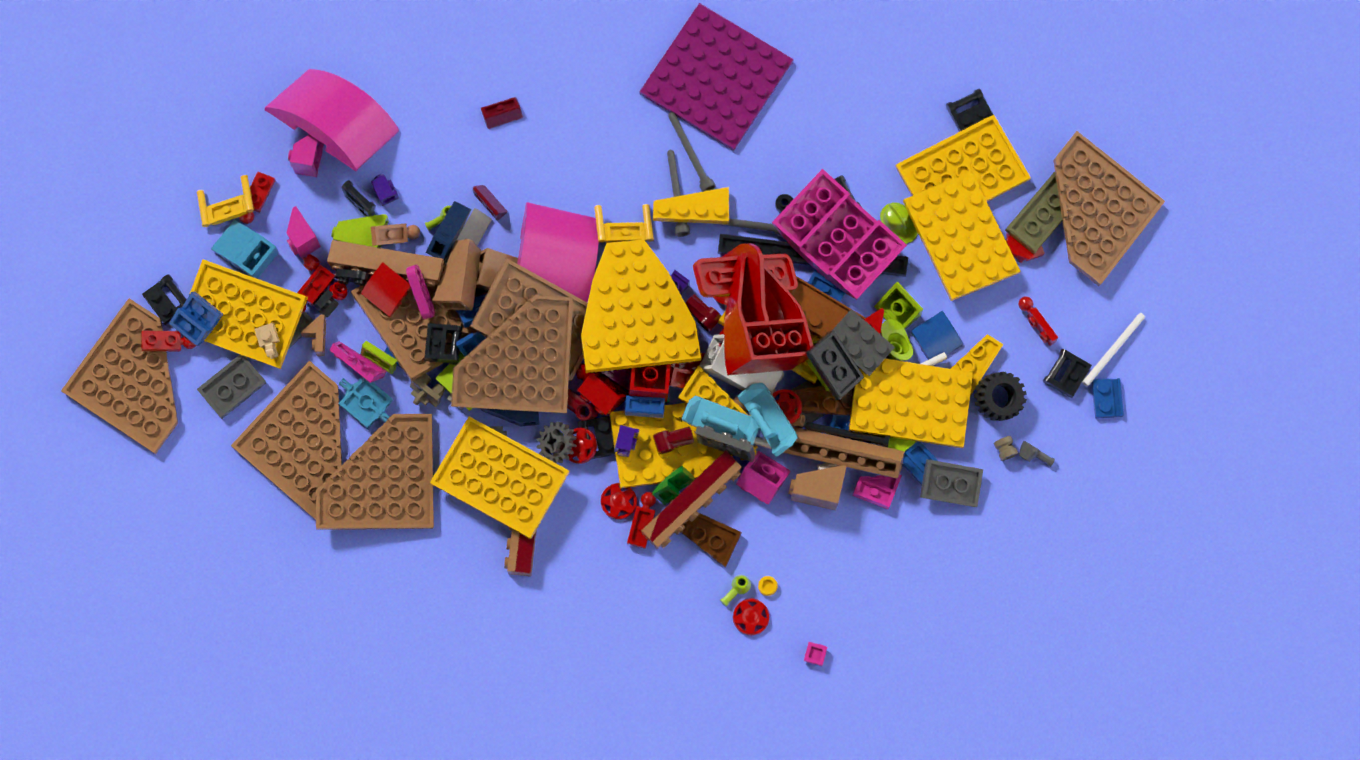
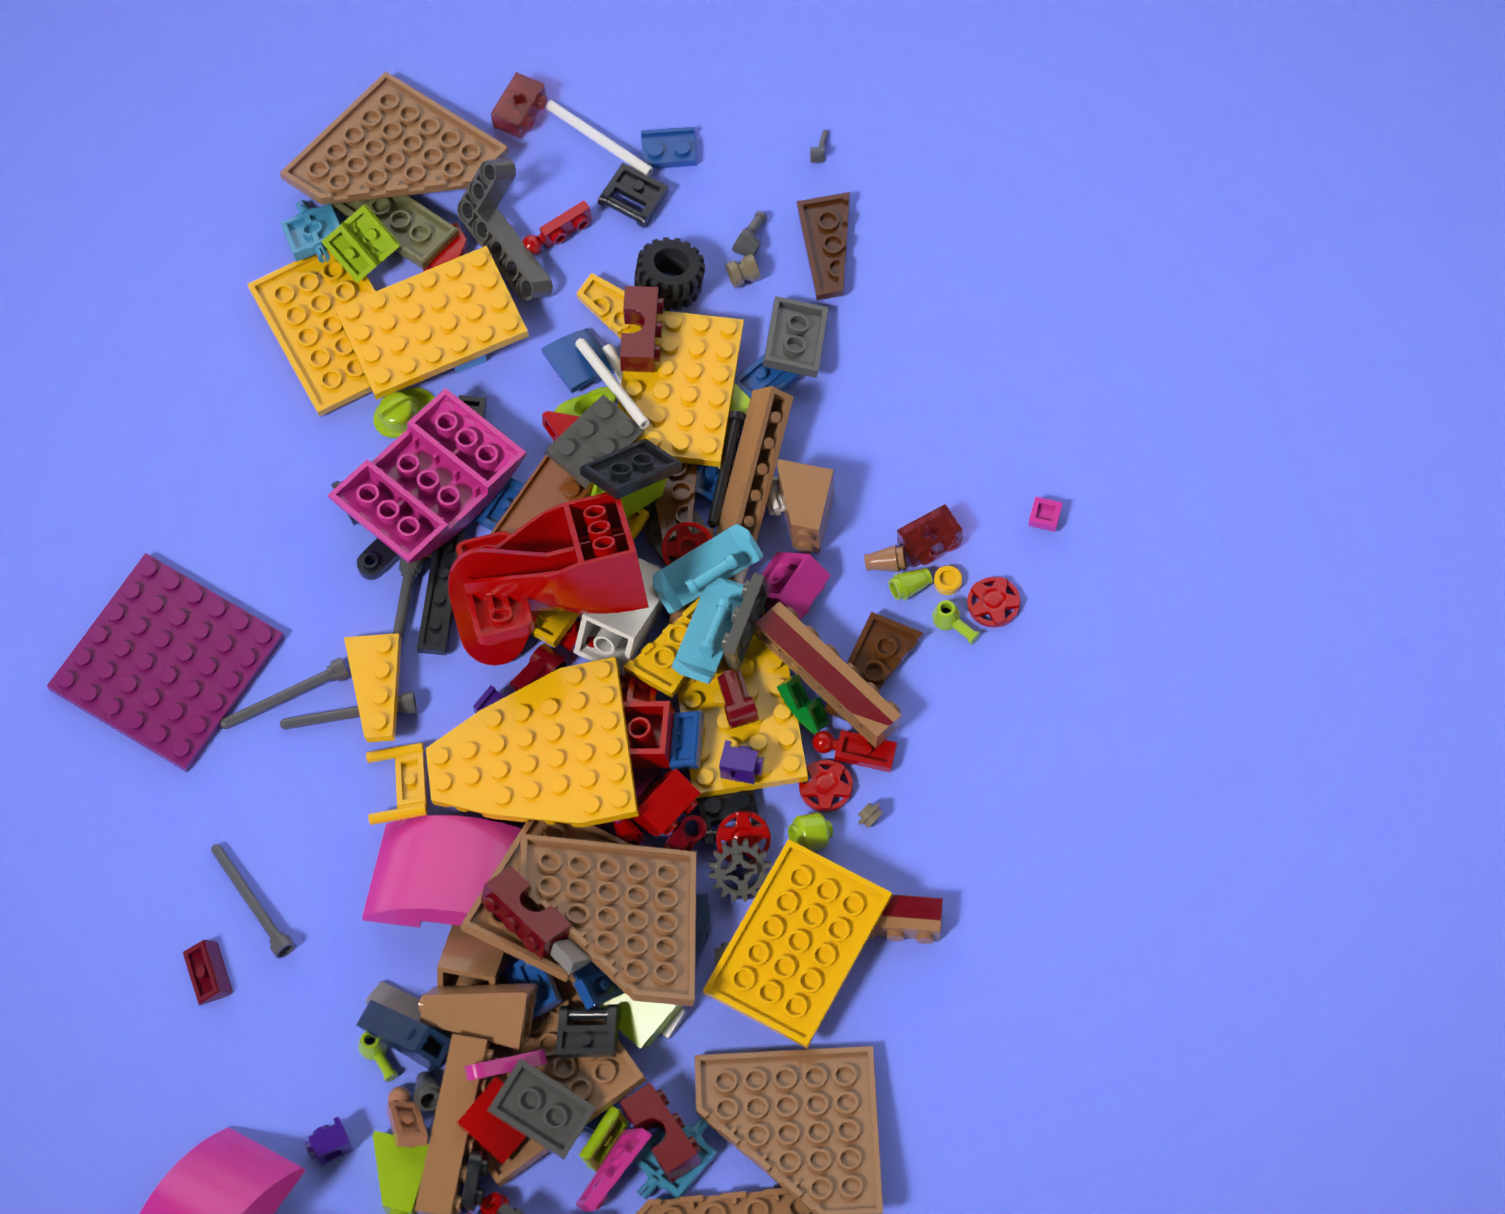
camera: 85 degrees left, 10 degrees down
(358, 200) = (349, 1176): black plate -> none
(365, 401) = (648, 1111): none -> dark red arch
(389, 313) = (541, 1109): none -> dark grey plate
(413, 246) = (426, 1091): none -> dark grey cone
(424, 393) = (663, 1065): dark tan hips -> none
(484, 327) = (569, 955): none -> light grey slope
(489, 201) = (354, 984): slope -> none
(499, 308) = (537, 930): none -> dark red arch
(518, 155) = (280, 943): none -> dark grey piece
(582, 489) = (811, 831): none -> lime head
(595, 529) = (869, 814): none -> dark tan plate
(764, 559) = (909, 583): none -> lime cone
(782, 546) = (886, 559): none -> medium nougat cone
(797, 562) = (936, 524): none -> clear red brick
(877, 489) = (806, 435): dark pink wing -> none
(899, 306) = (528, 401): lime slope -> none
(910, 355) = (612, 383): none -> white piece
(932, 375) = (639, 349): none -> dark red arch
(972, 115) = (246, 314): black plate -> none
(1020, 186) = (361, 243): none -> lime slope
(1030, 280) = (491, 229): none -> dark grey beam
(1032, 506) = (825, 239): none -> reddish brown wing
(1033, 155) = (308, 229): none -> dark azure plate
(1102, 502) = (817, 154): none -> dark grey hand
(1148, 293) = (519, 105): none -> clear red brick

